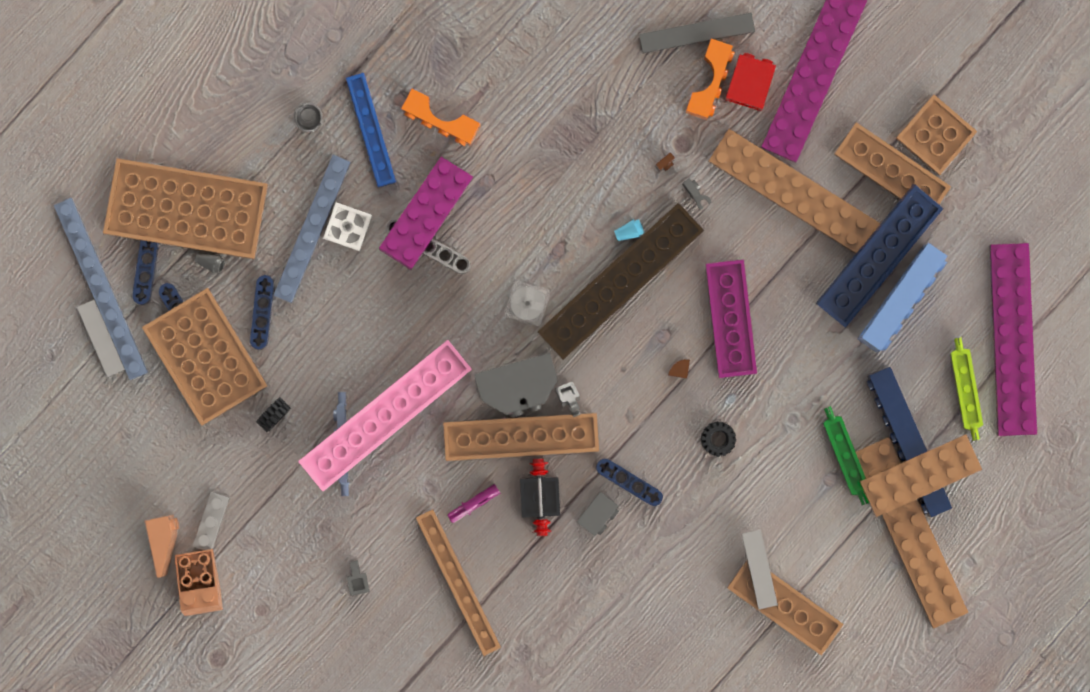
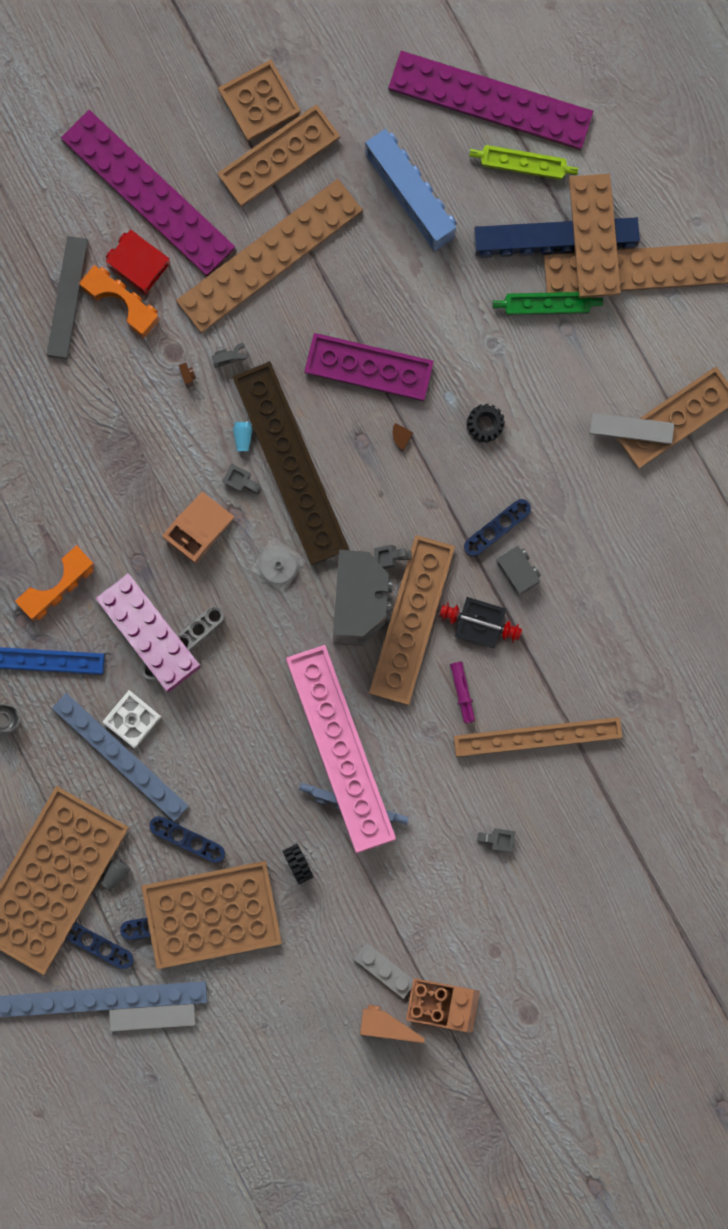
camera: 80 degrees left, 5 degrees down
(534, 222) = (198, 527): none -> nougat slope
(589, 241) = (239, 478): none -> dark grey plate
(879, 255) = (359, 197): dark blue plate -> none

